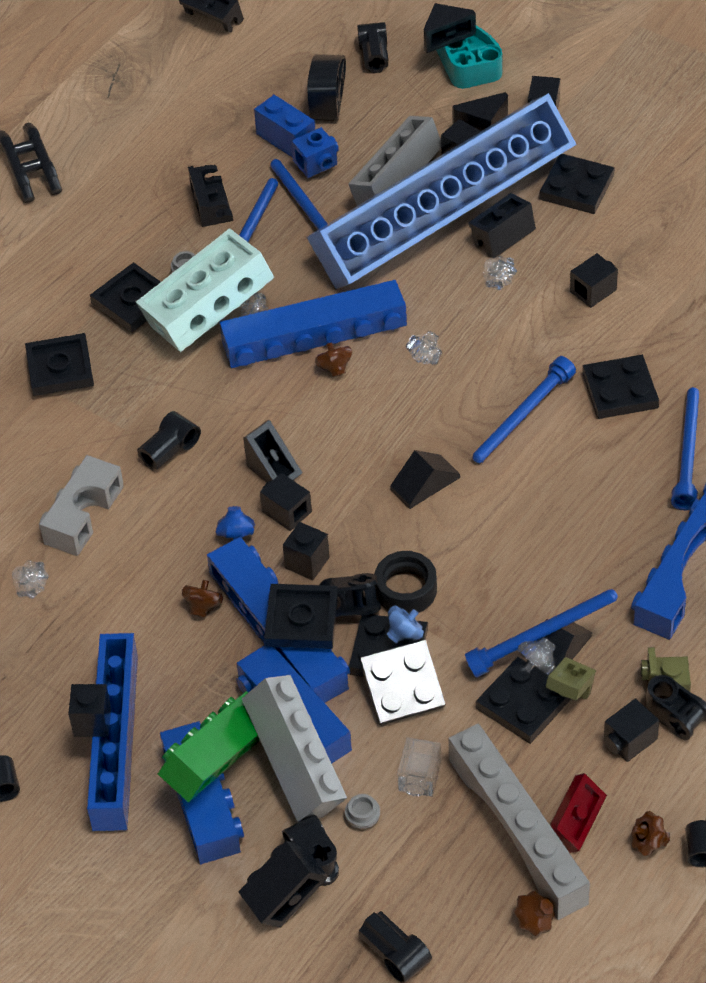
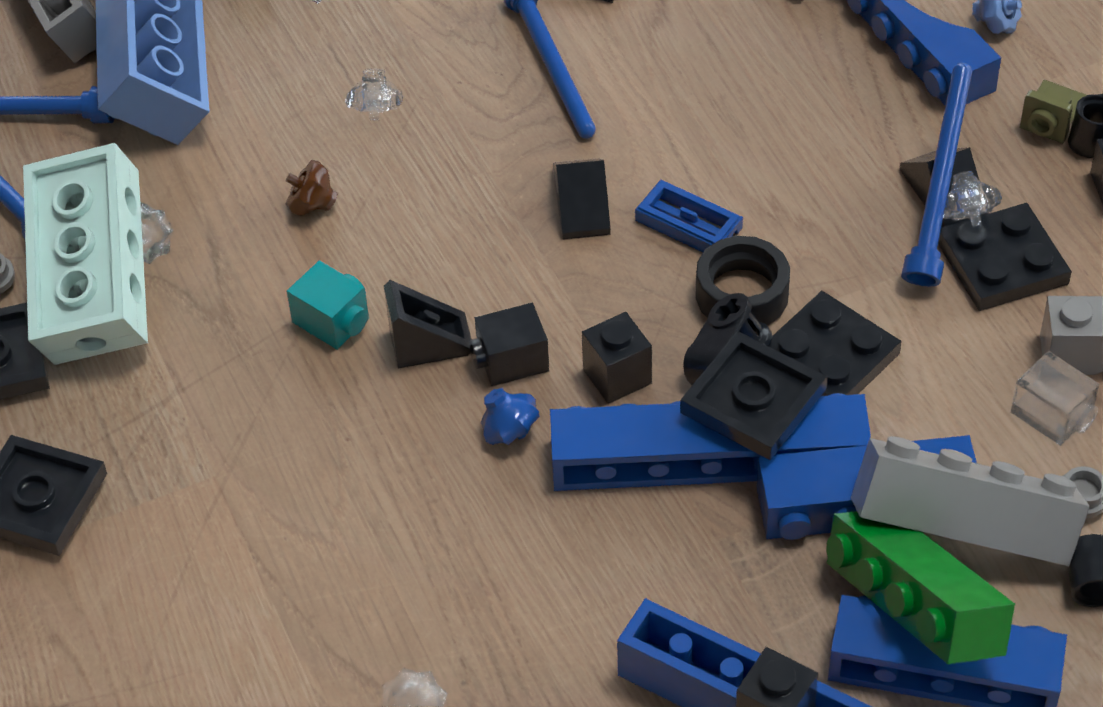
camera: 60 degrees left, 0 degrees up
(90, 485) = (345, 612): light grey arch -> none
(173, 434) = (292, 419): black piece -> none
(201, 599) = (607, 509): reddish brown piece -> none
(258, 406) = (328, 304): none -> teal brick
(313, 323) = (229, 188): blue brick -> none
(402, 682) = (908, 355): plate -> none
(403, 625) = (833, 303): medium blue piece -> none
(443, 557) = (684, 223): none -> blue tile
(571, 679) = (1026, 185): olive bracket -> none

